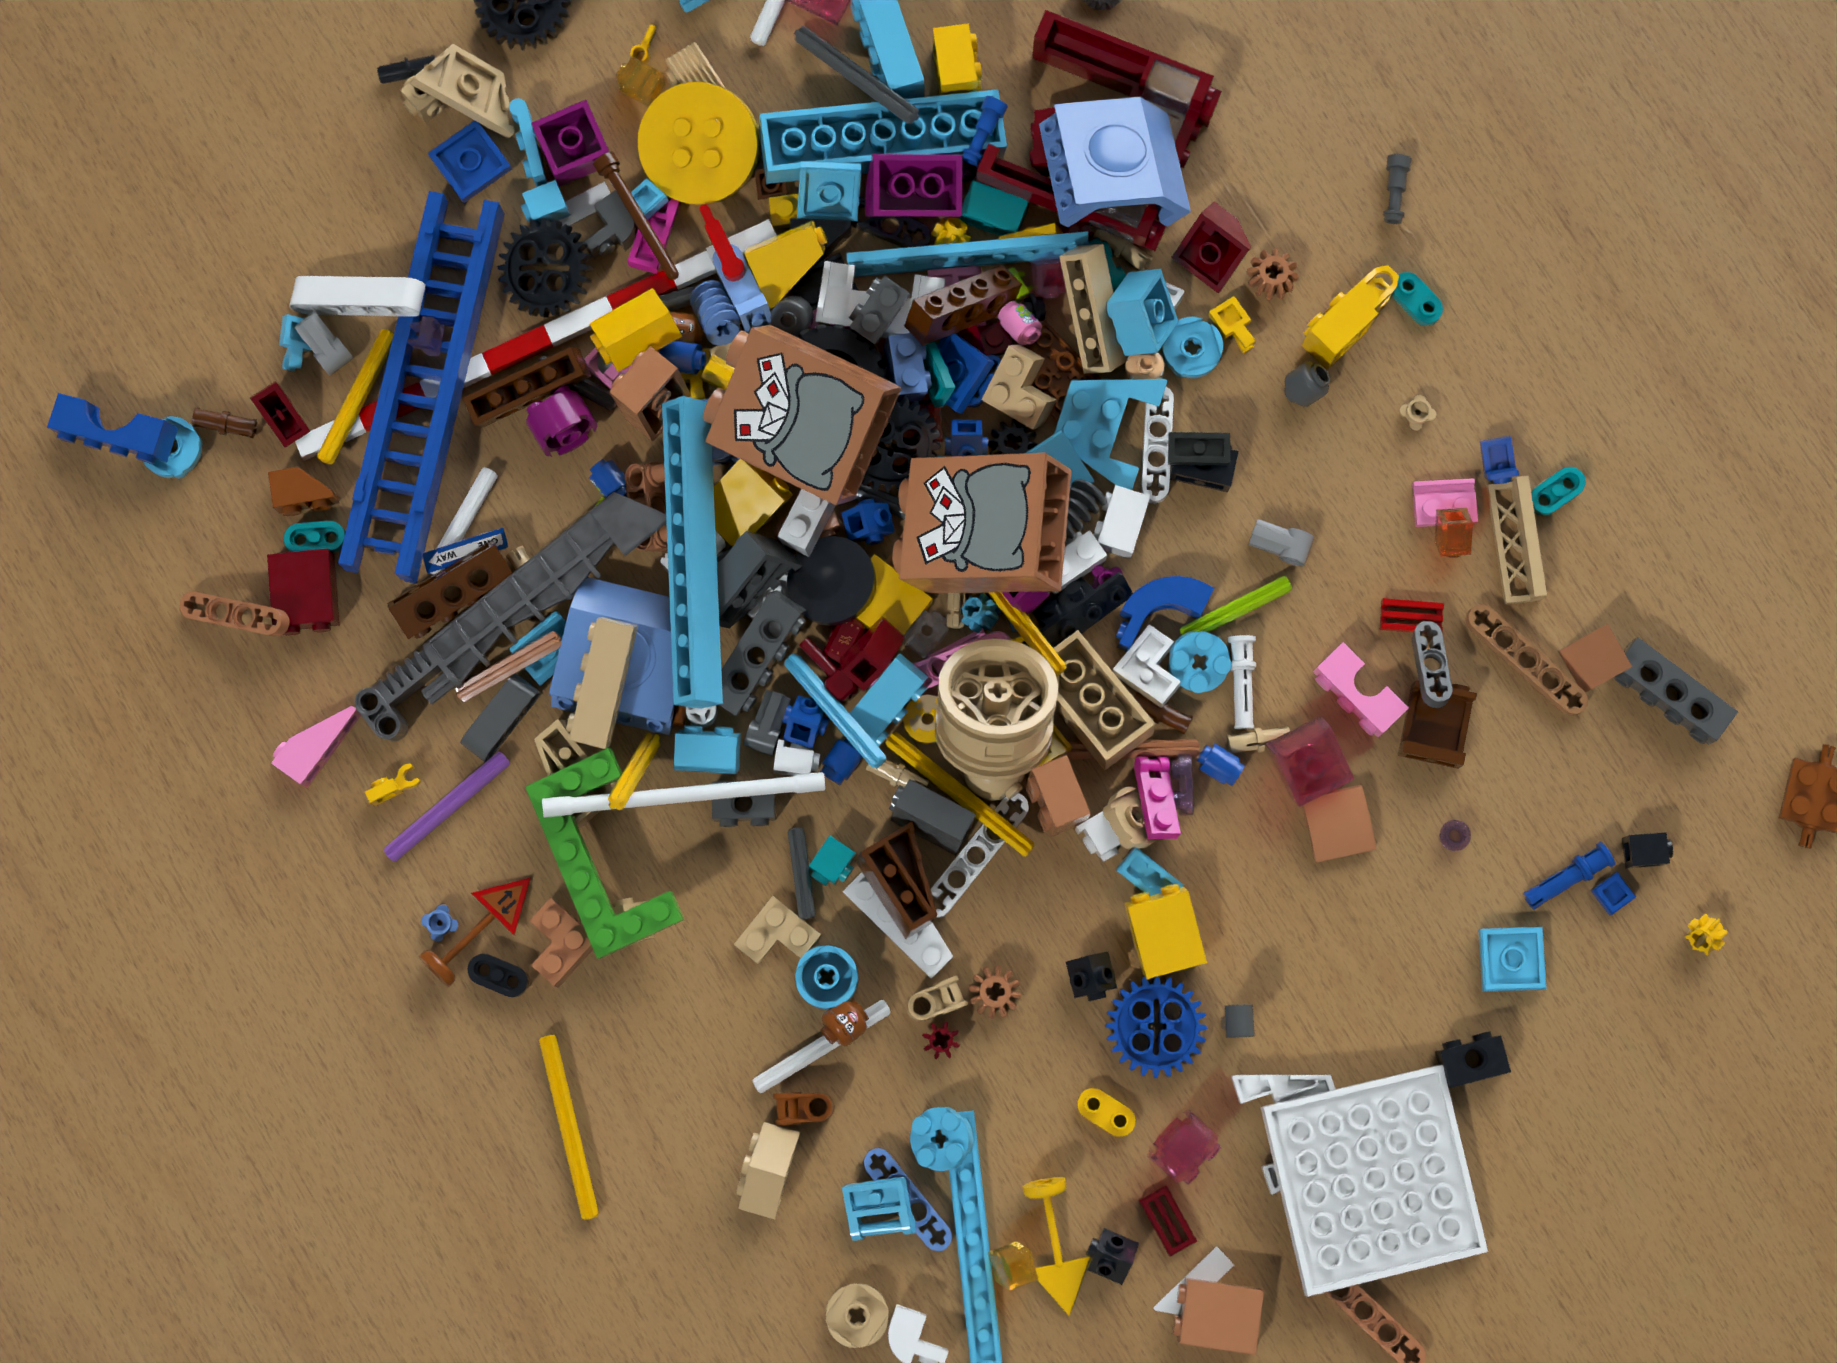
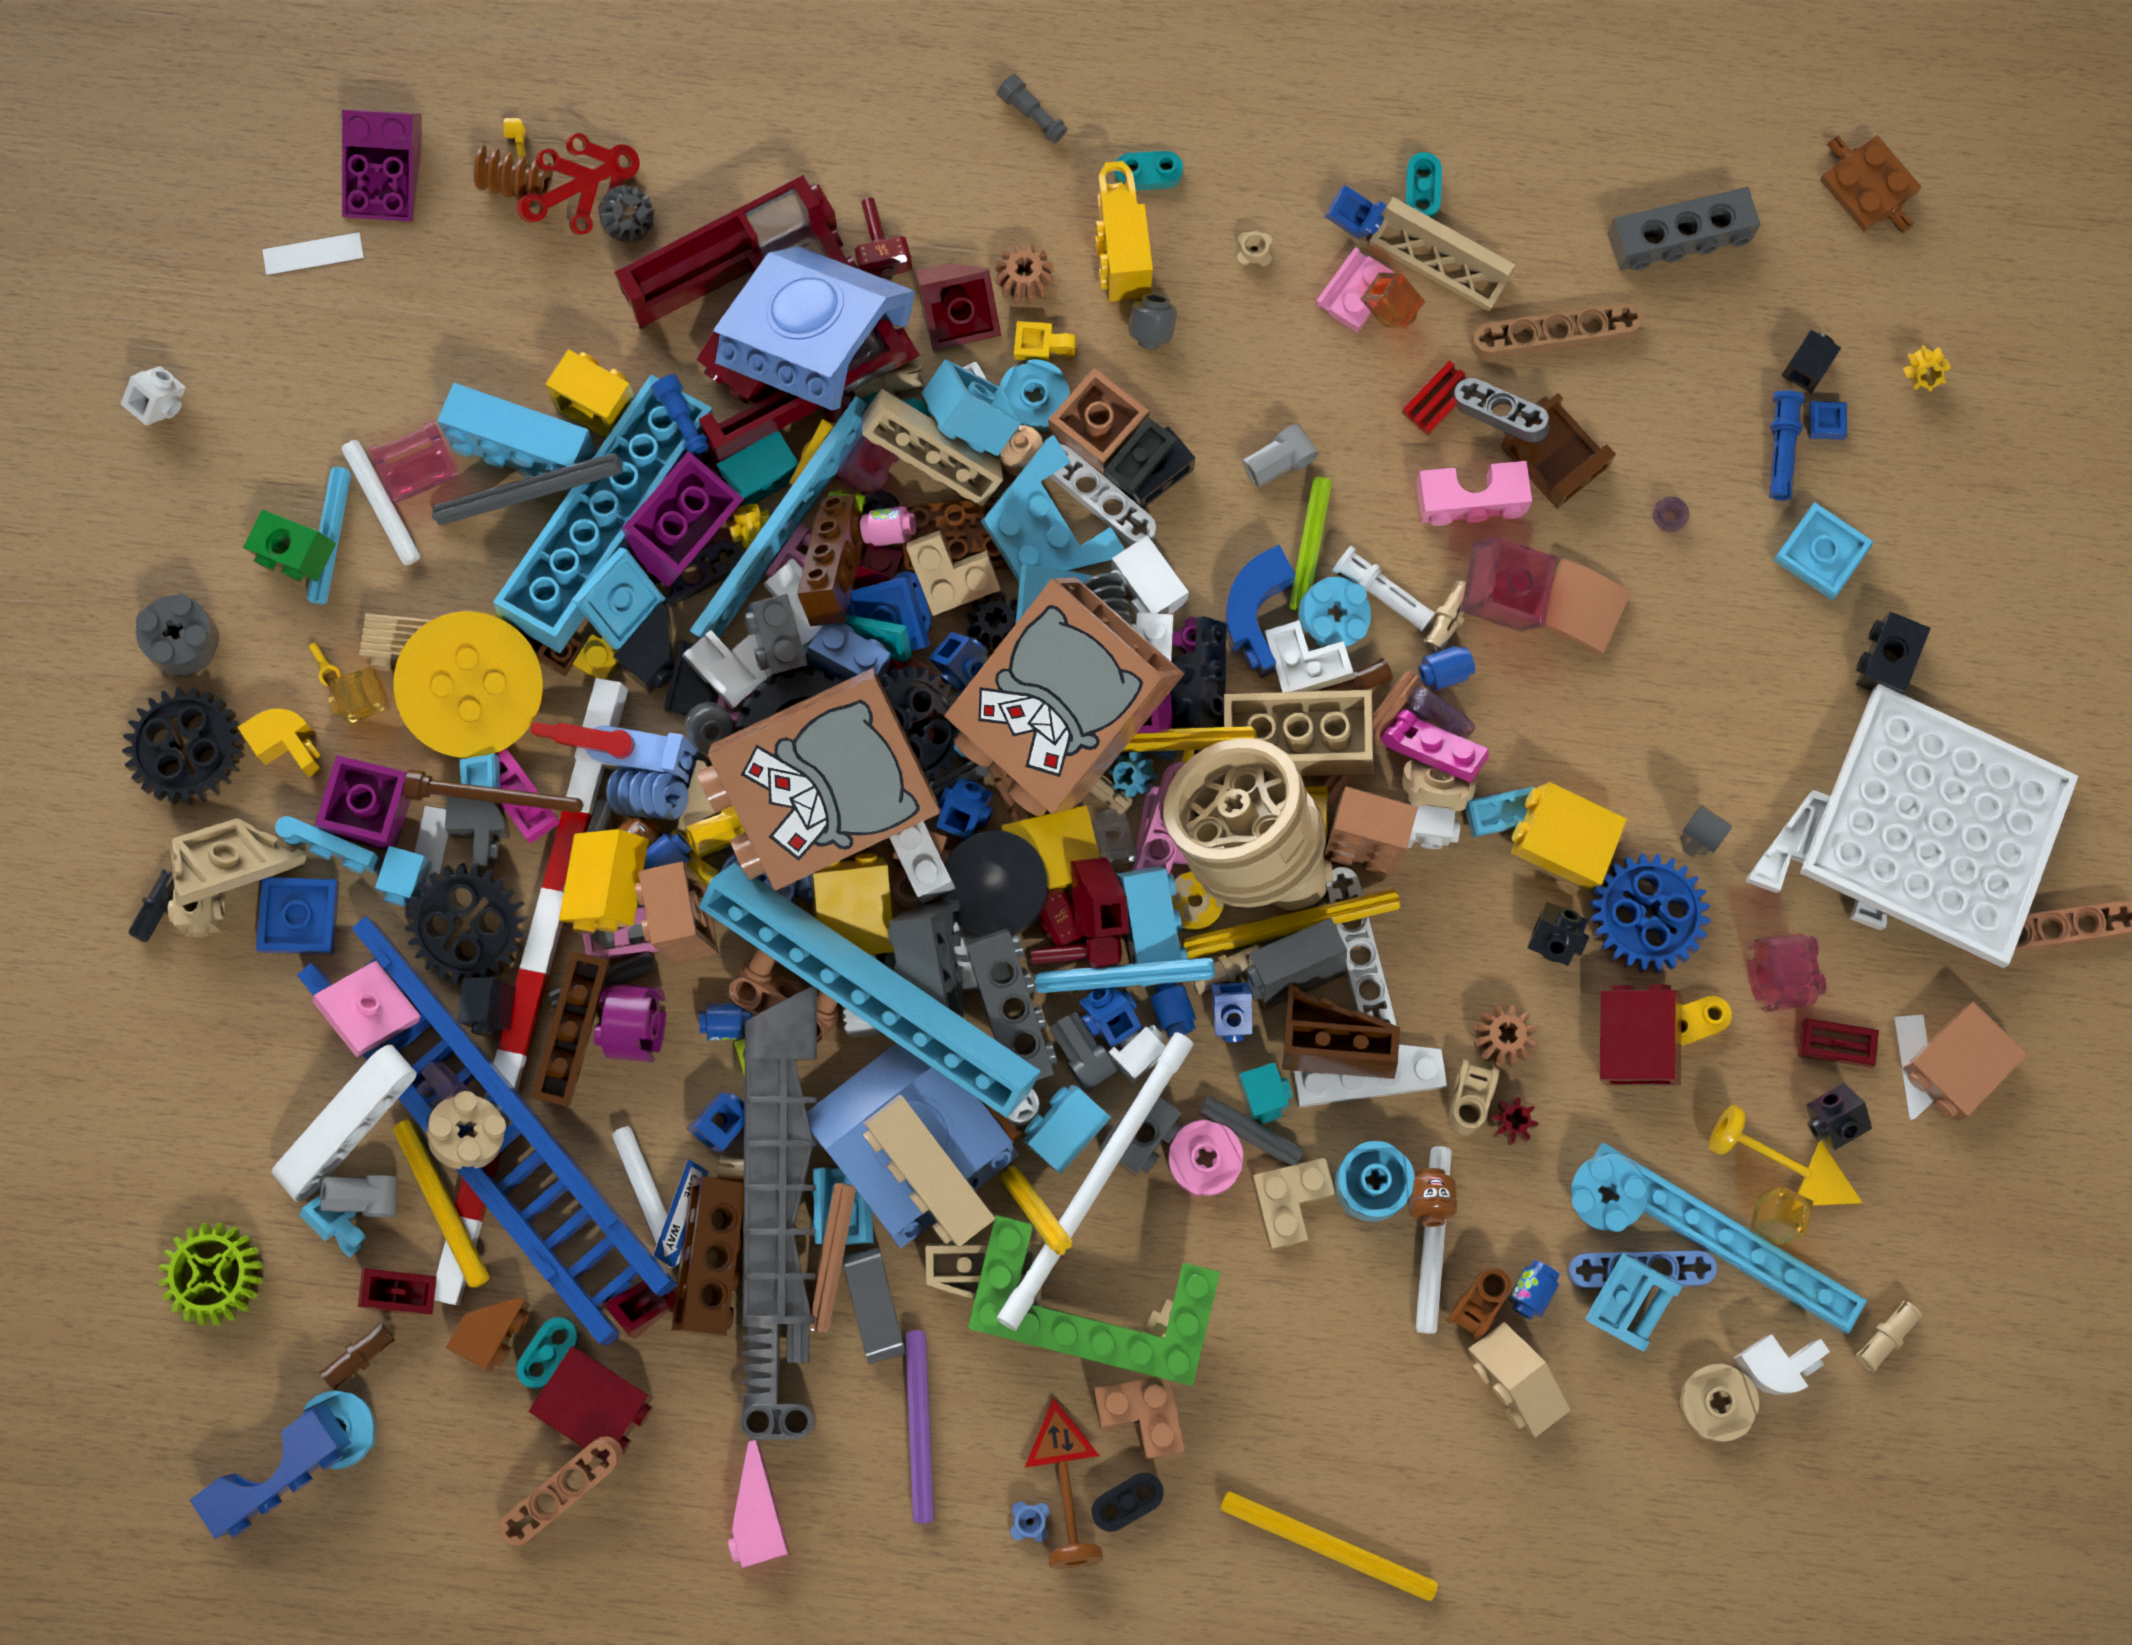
camera: 55 degrees left, 5 degrees down
(183, 288) = (200, 1285): none -> lime gear
(379, 572) = (639, 1308): none -> dark red slope
(385, 789) = (855, 1474): yellow plate -> none
(395, 386) = (466, 1151): none -> tan plate
(439, 250) = (366, 1008): none -> bright pink plate
(502, 323) = (486, 1005): none -> black brick
(531, 532) = (711, 1135): none -> blue brick
(576, 52) = (281, 731): none -> yellow brick
(753, 840) = (1199, 1179): none -> bright pink plate
(785, 259) = (651, 687): yellow slope -> none
(837, 1137) = (1534, 1290): none -> blue brick
(877, 794) = (1231, 999): none -> brick
(1063, 1081) = (1640, 1036): none -> dark red brick
(1205, 401) = (1097, 420): none -> nougat brick
(1209, 172) = (882, 255): none -> dark red piece
(1595, 658) = (1604, 269): nougat sticker -> none

